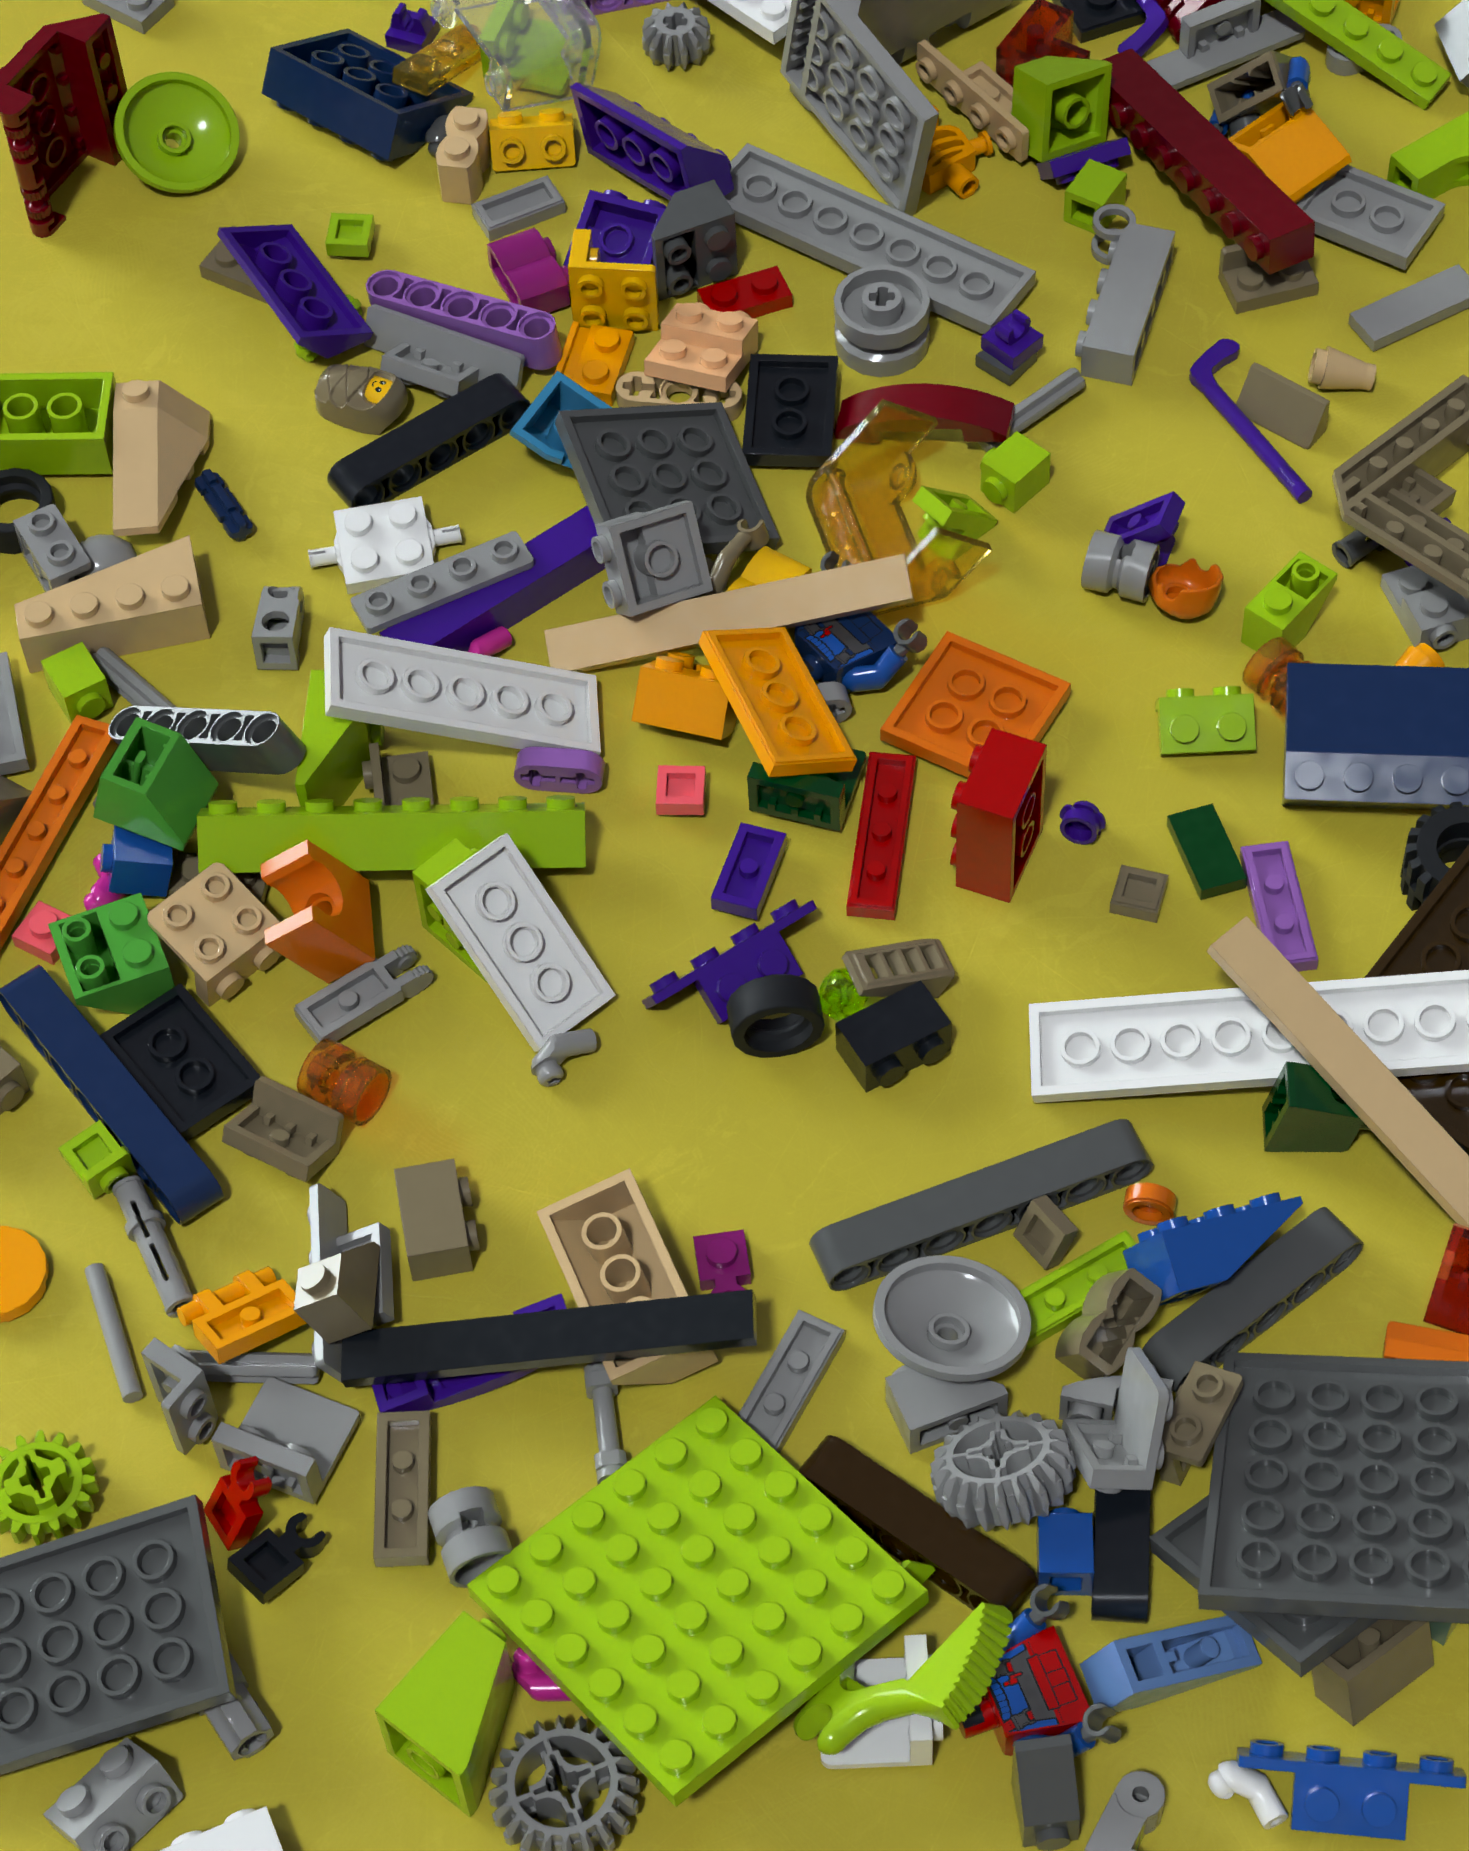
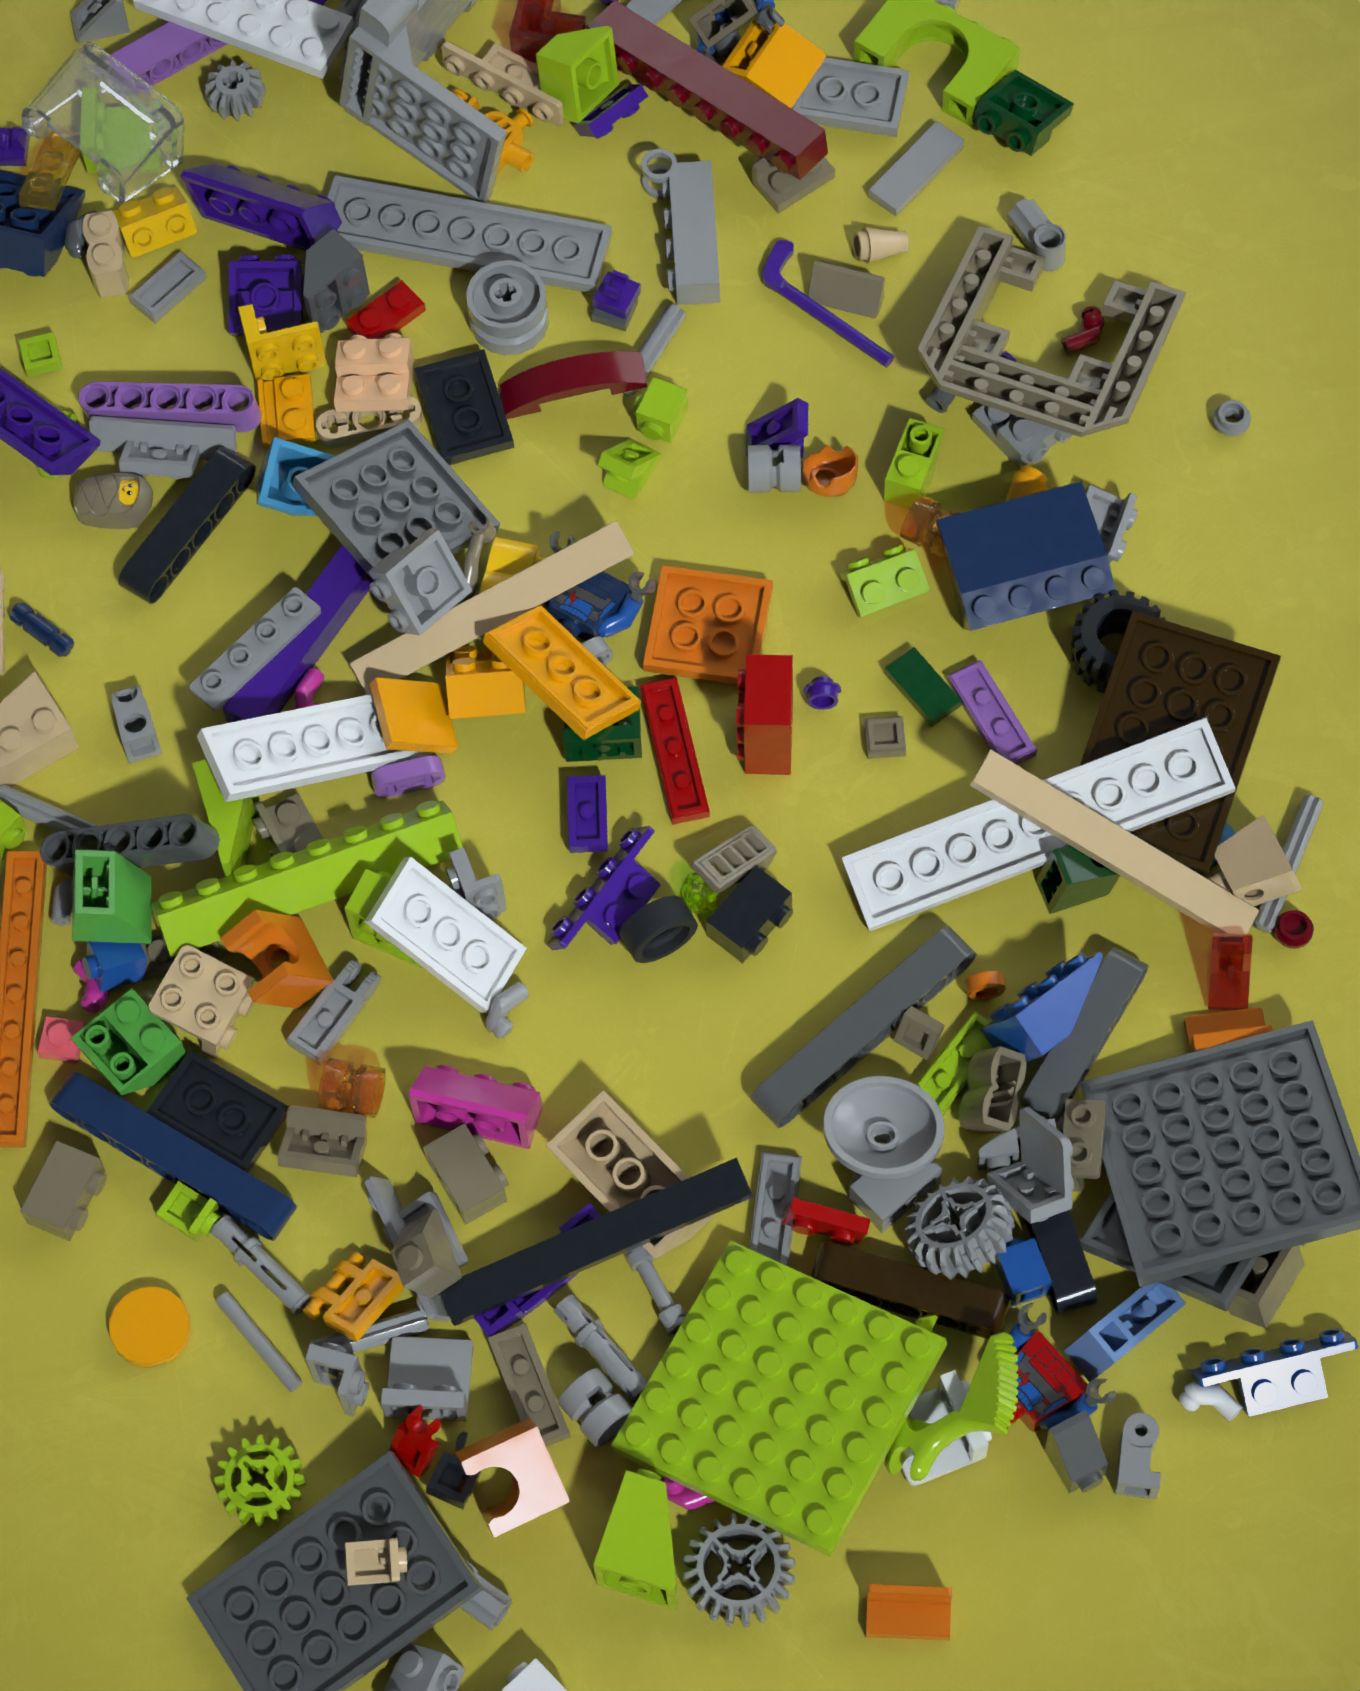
camera: 20 degrees left, 10 degrees up
(116, 1616) = (374, 1562): none -> tan bracket
(358, 1575) = (534, 1477): none -> piece
(382, 543) = (187, 625): white plate -> none
(485, 1145) = (491, 1108): none -> dark pink slope
(503, 1453) = (596, 1341): none -> light grey pin
(529, 271) = (204, 347): magenta brick -> none
(582, 908) = (485, 894): none -> light grey bracket
(590, 705) = (413, 715): none -> light orange tile
(680, 790) = (508, 763): coral plate -> none
(722, 1261) = (693, 1136): magenta plate -> none
(826, 1401) = (813, 1218): none -> red plate
(860, 512) = (559, 490): clear yellow windscreen -> none
(1091, 189) = (631, 141): lime brick -> none

